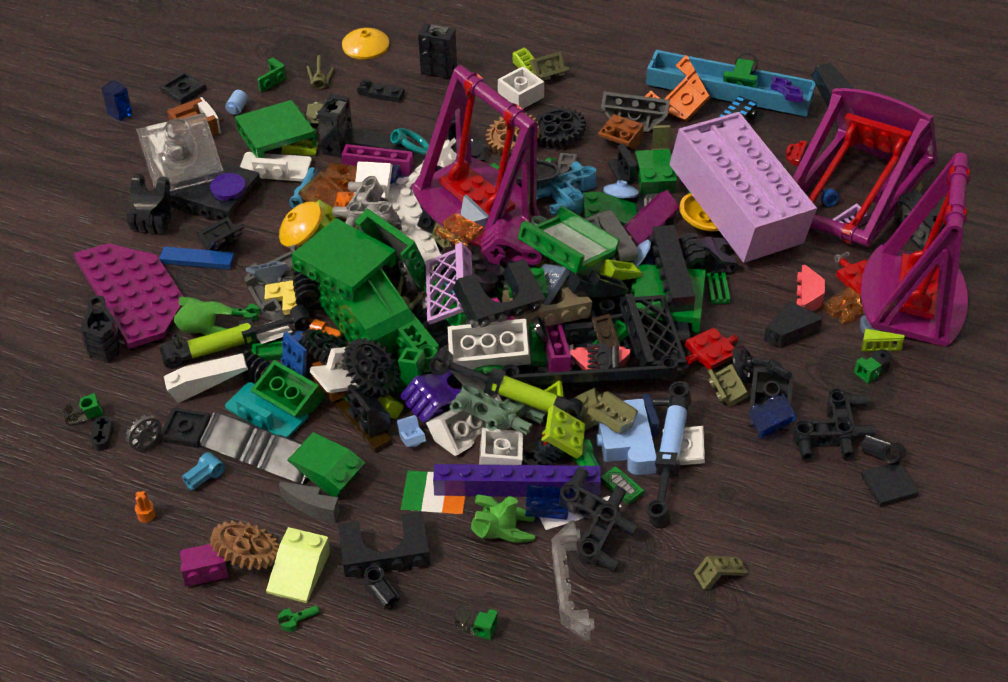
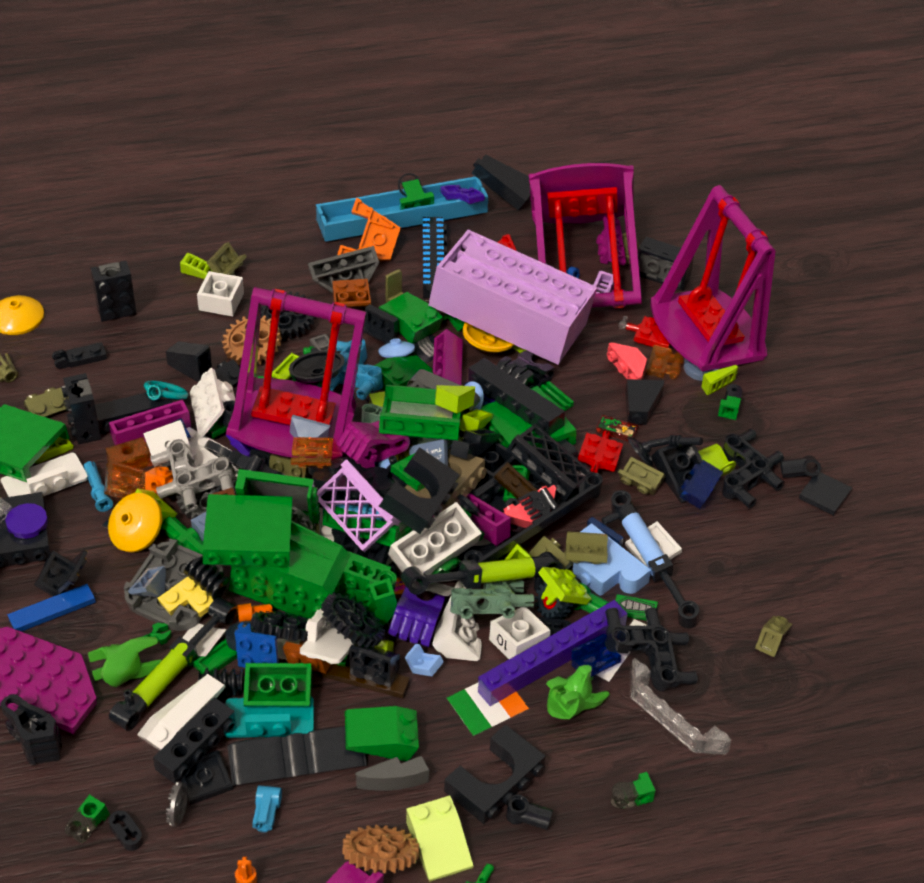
camera: 40 degrees left, 0 degrees up
(195, 396) = (183, 744): none -> black brick
(404, 221) = (239, 460): none -> black piece
(609, 242) = (455, 397): none -> lime slope
(749, 338) = (617, 428): none -> tile
(811, 405) = (717, 458): none -> lime piece

